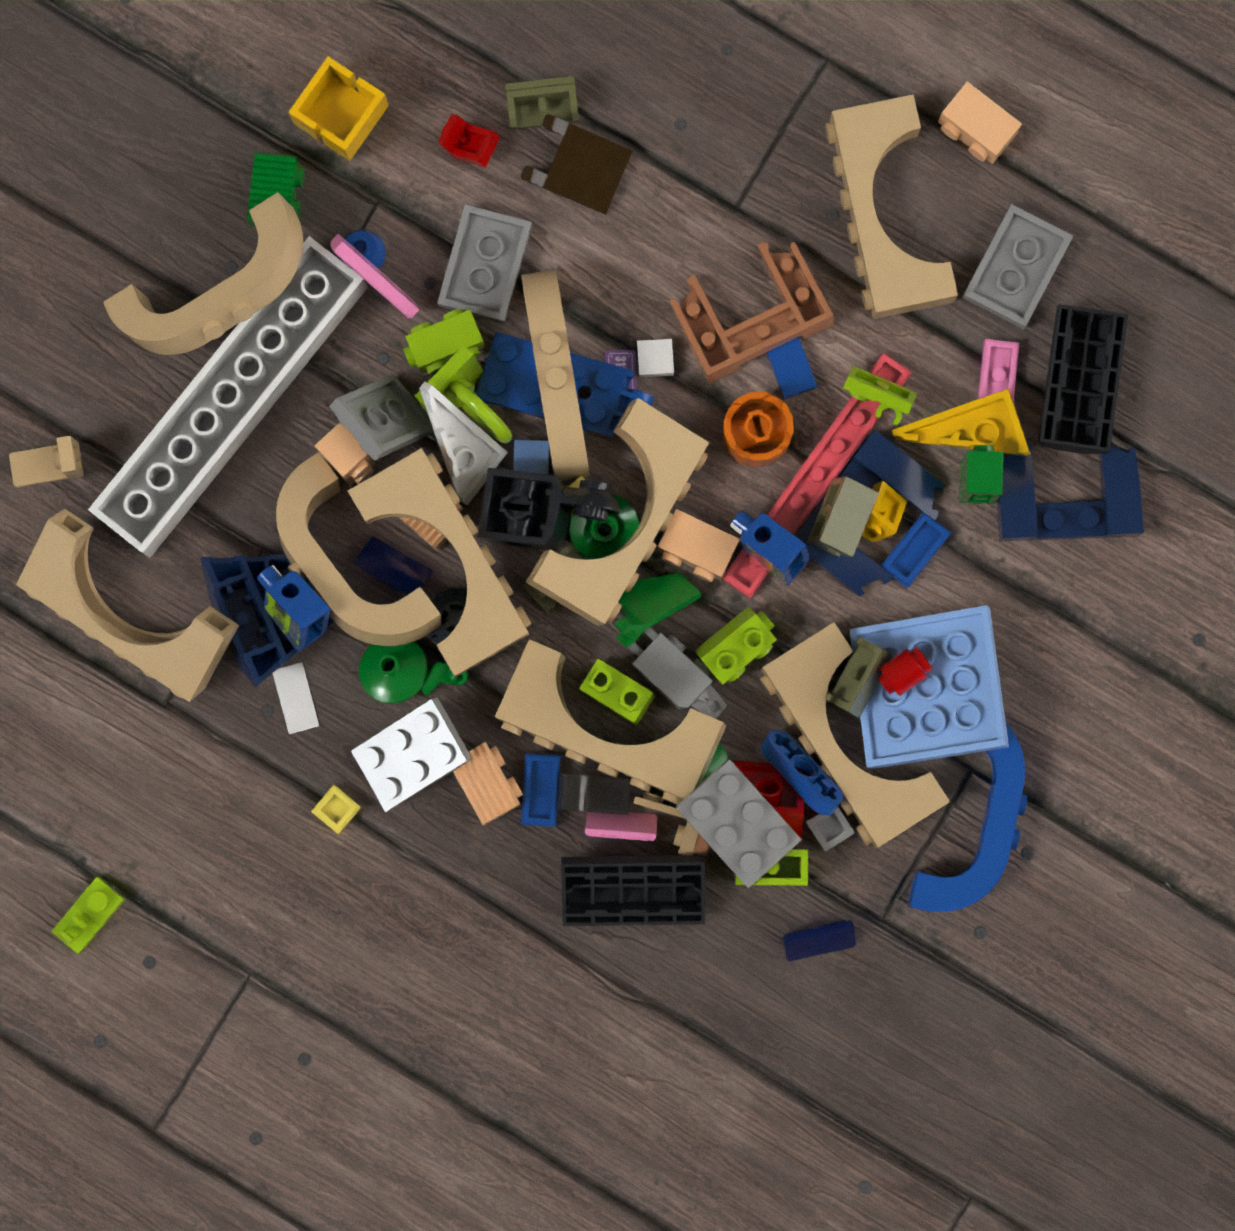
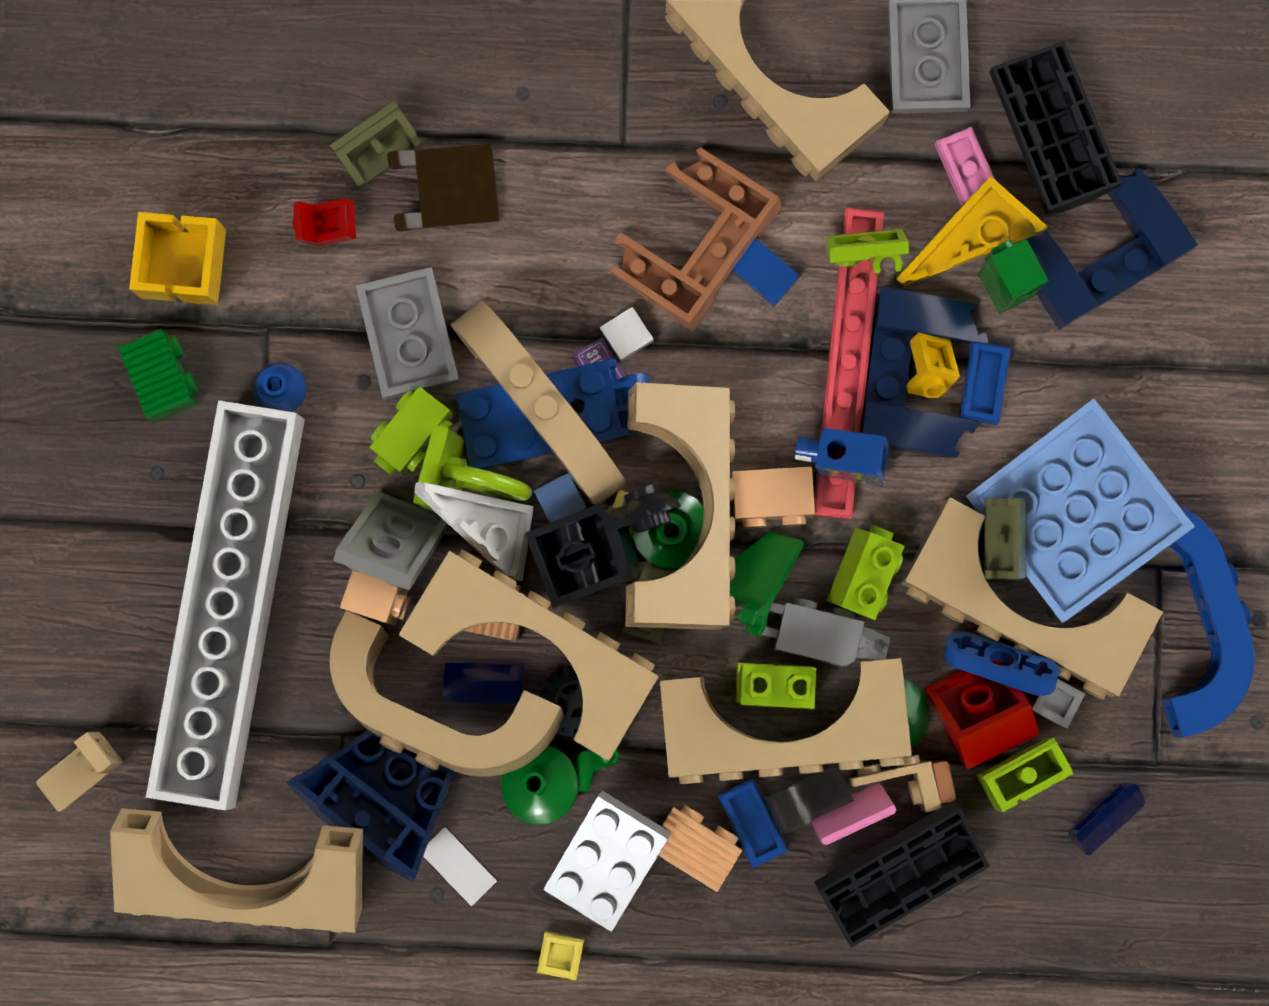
camera: 30 degrees left, 0 degrees up
(226, 303) = (172, 512): tan arch -> none
(294, 607) = (423, 782): blue torso -> none
(374, 276) = (305, 405): bright pink tile -> none
(738, 823) = (973, 751): light grey plate -> none
(757, 429) = (768, 348): orange brick -> none
(842, 517) = (901, 389): olive hinge -> none
(904, 671) = (1049, 508): red brick -> none

